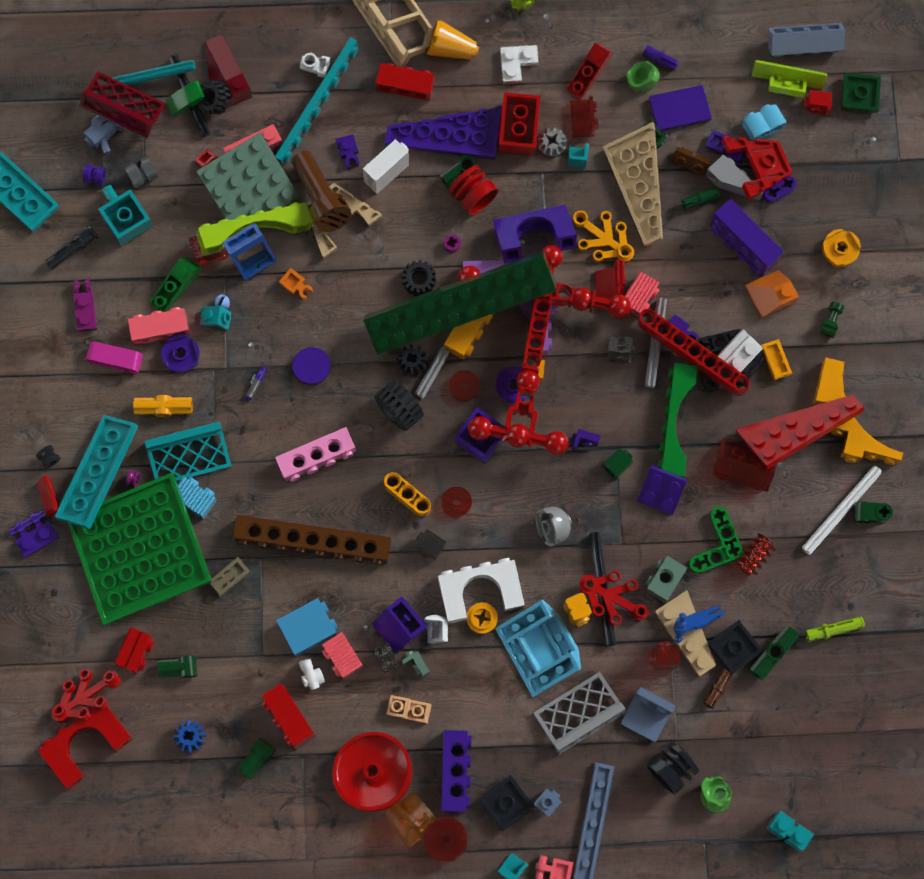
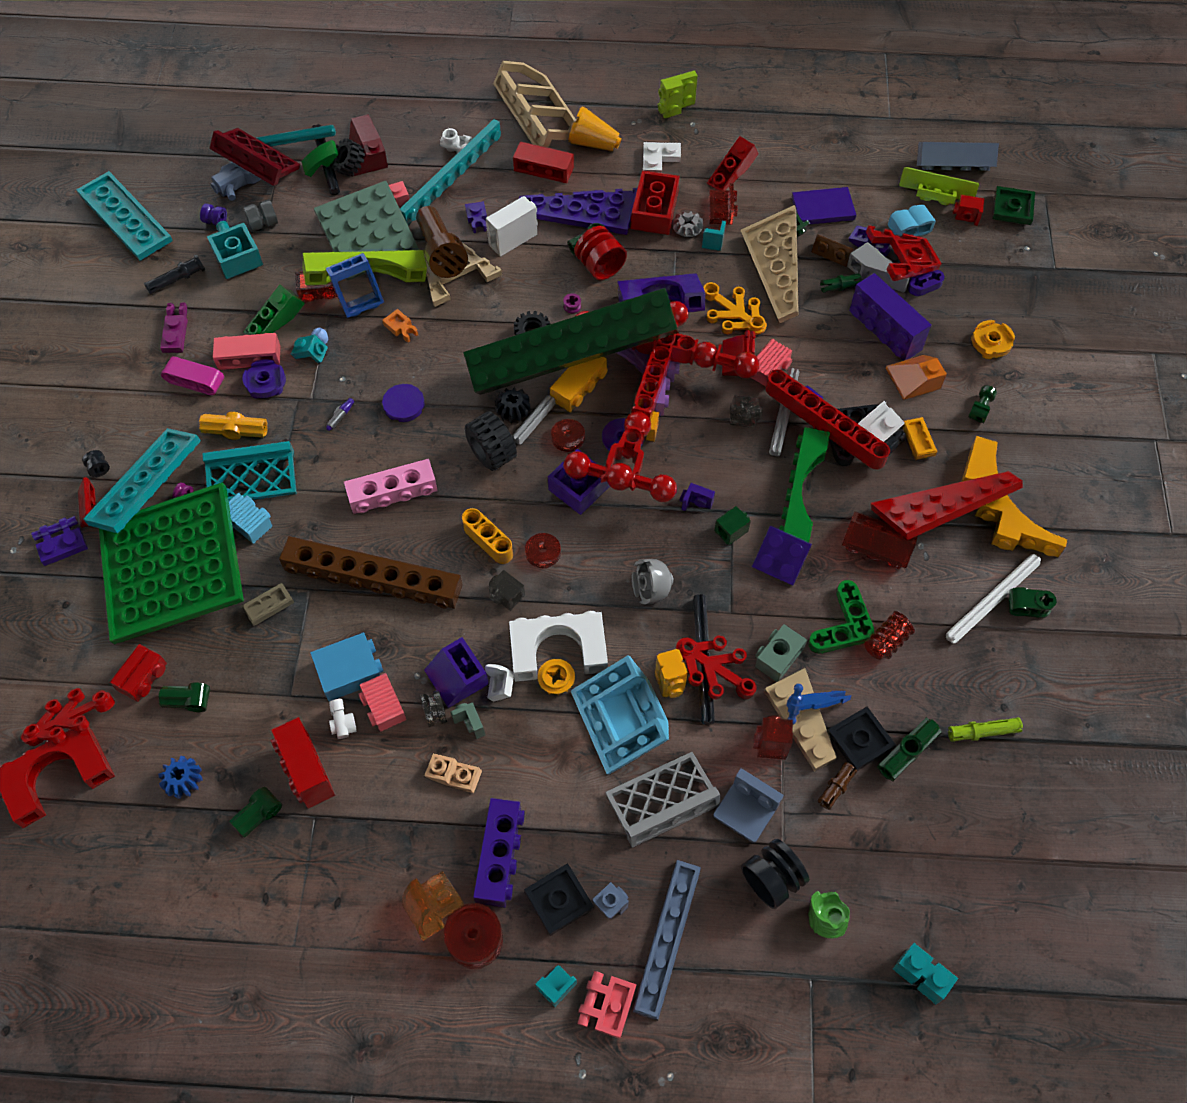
camera: 10 degrees right, 15 degrees down
(372, 771) = (394, 841): red dish -> none
(643, 76) = (787, 175): bright green hair -> none
(660, 57) = (805, 162): dark purple axle -> none

